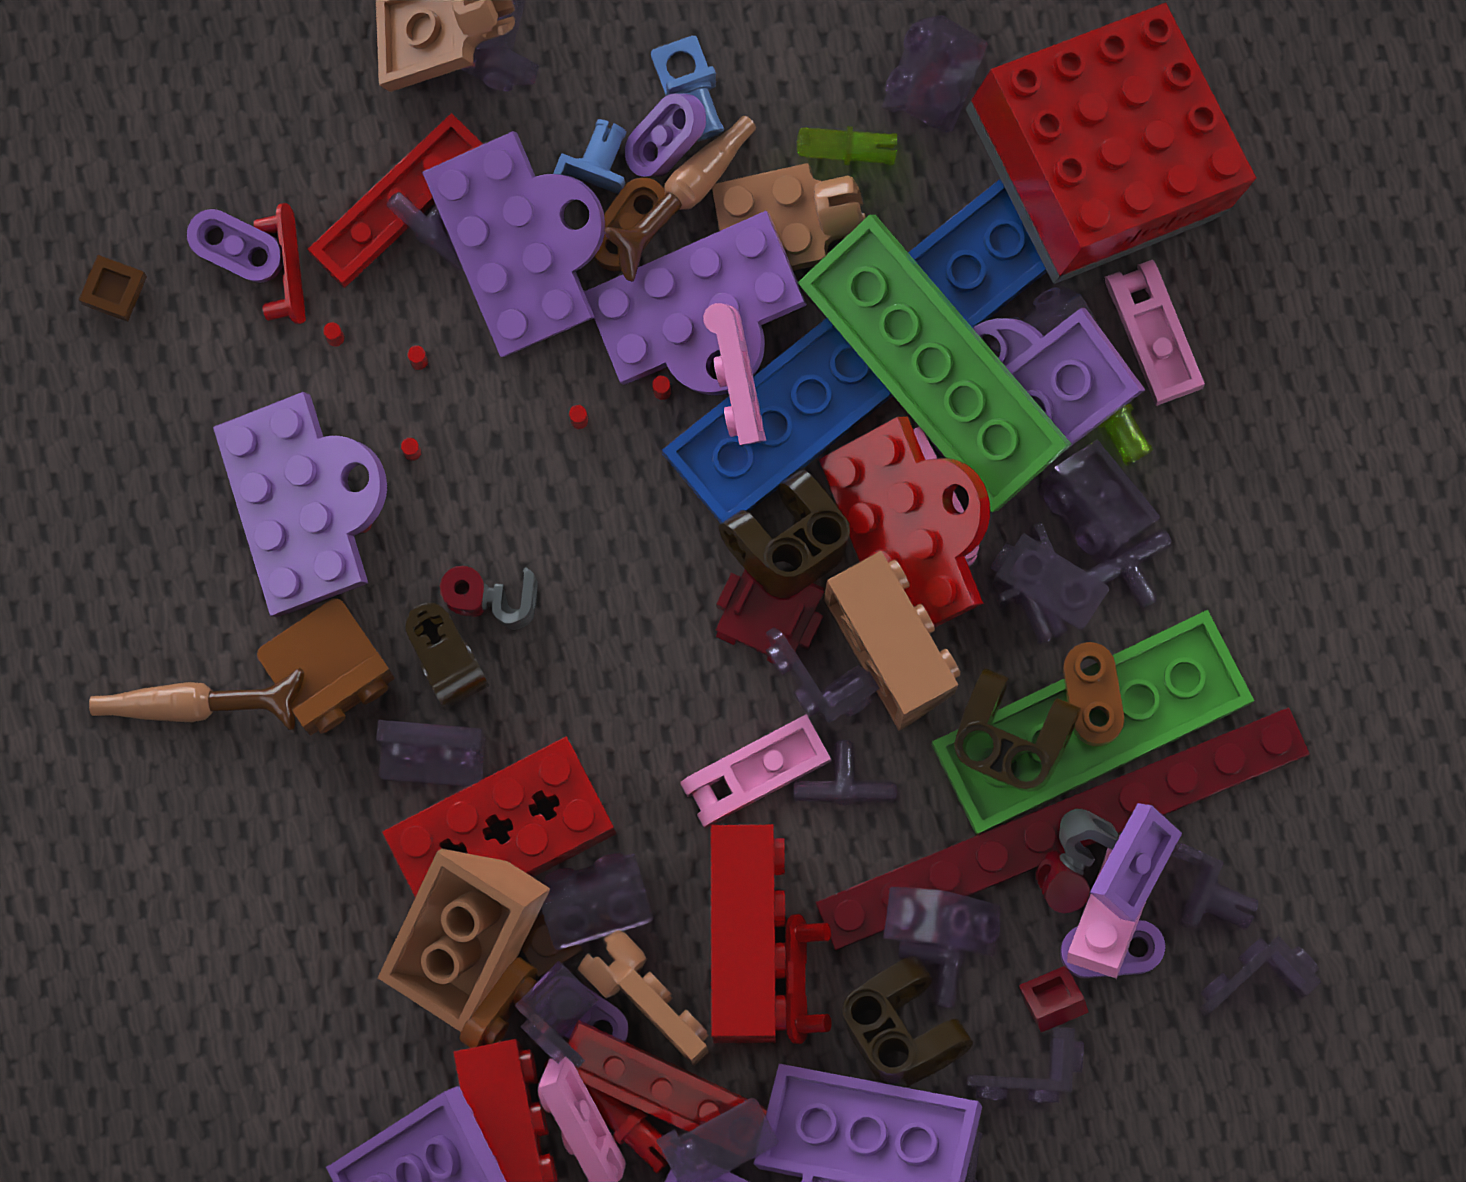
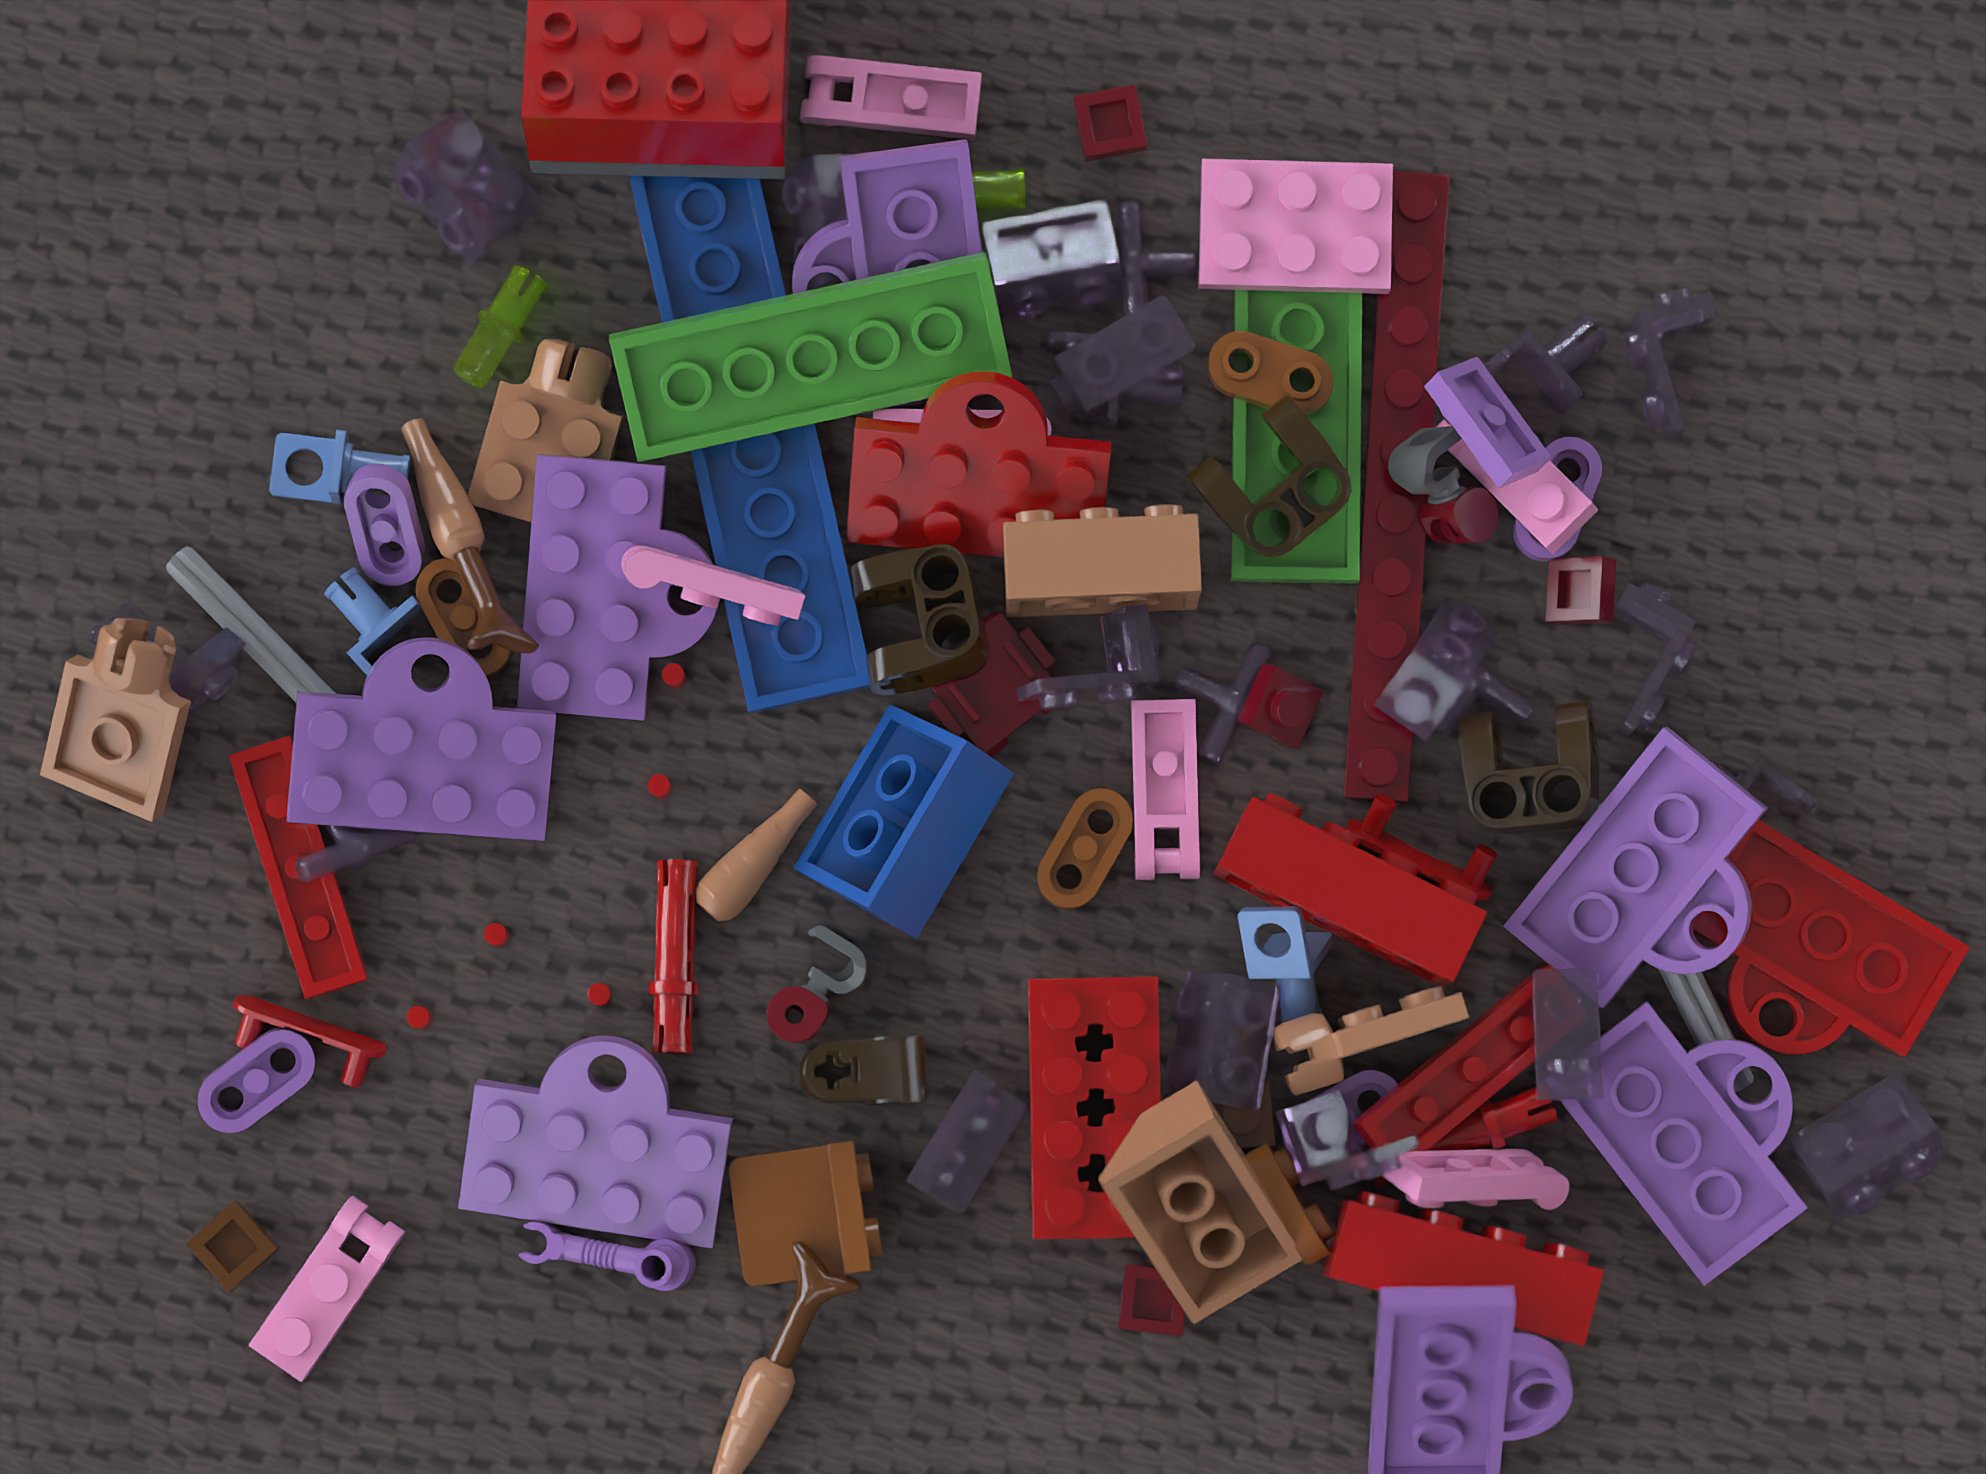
camera: 70 degrees left, 5 degrees up
(112, 367) = (325, 1291): none -> bright pink plate
(239, 585) = (562, 1246): none -> medium lavender brick
(376, 939) = (1148, 1303): none -> dark red plate
(454, 491) = (674, 965): none -> red pin
(549, 80) = (233, 612): none -> light grey axle
(549, 504) = (742, 871): none -> nougat piece
(638, 598) = (904, 820): none -> blue slope
(675, 916) = (1285, 957): none -> medium blue bracket
(684, 735) = (1084, 849): none -> dark orange plate
(857, 823) = (1280, 706): none -> dark red plate
(1211, 659) = (1295, 226): none -> bright pink plate
(1217, 493) = (1110, 123): none -> dark red plate

